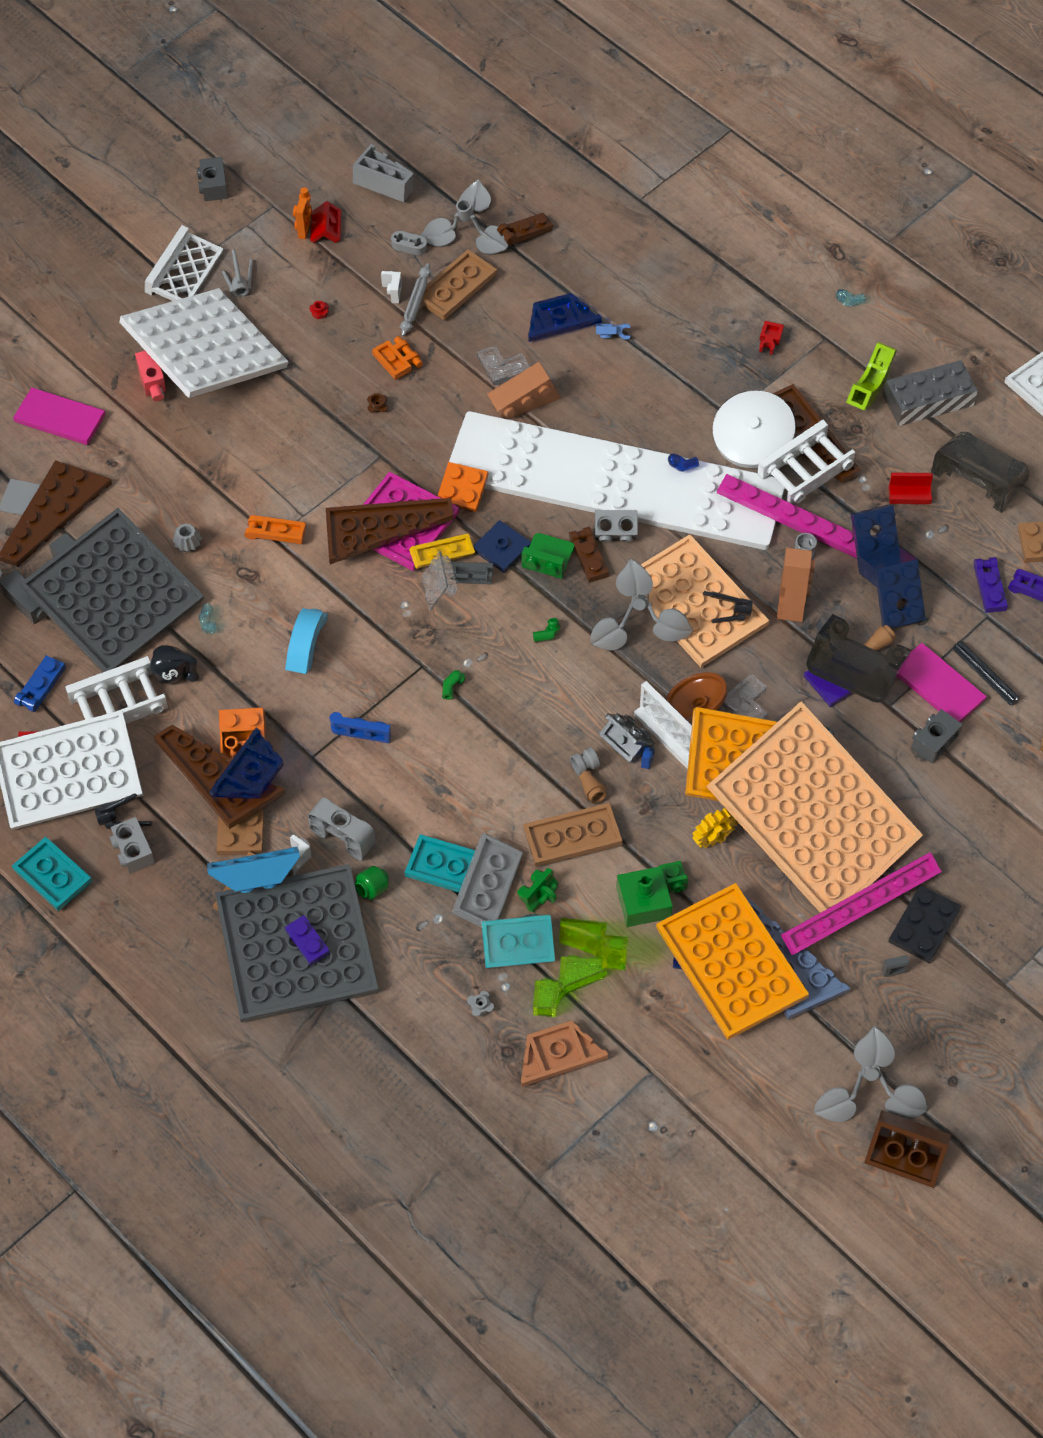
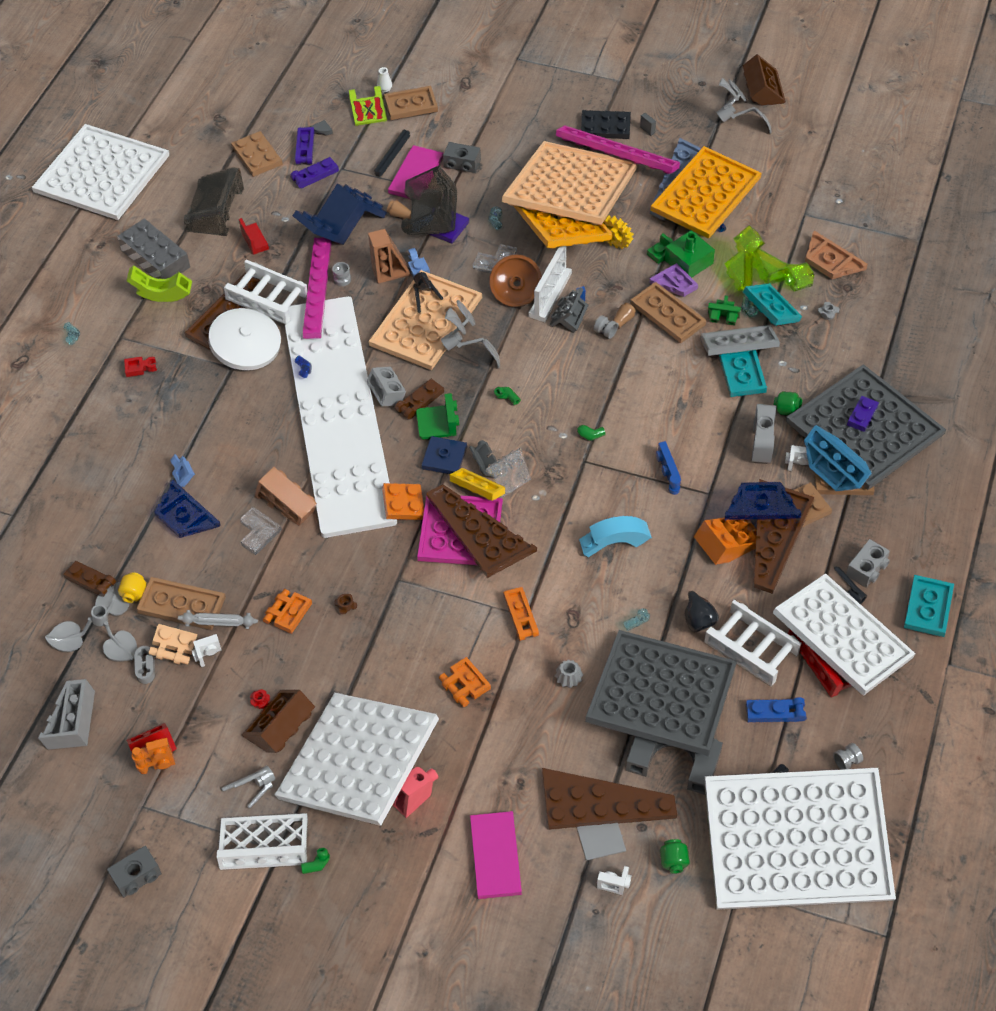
camera: 115 degrees left, 5 degrees down
(138, 297) = (319, 862): none -> green arm
(233, 463) = (469, 677): none -> orange plate
(285, 311) = (279, 720): none -> reddish brown slope
(411, 272) = (175, 640): none -> light nougat plate
(493, 252) = (132, 587): none -> yellow head
(614, 862) = (675, 280): none -> medium lavender wing
(781, 626) = (416, 264): none -> medium blue plate

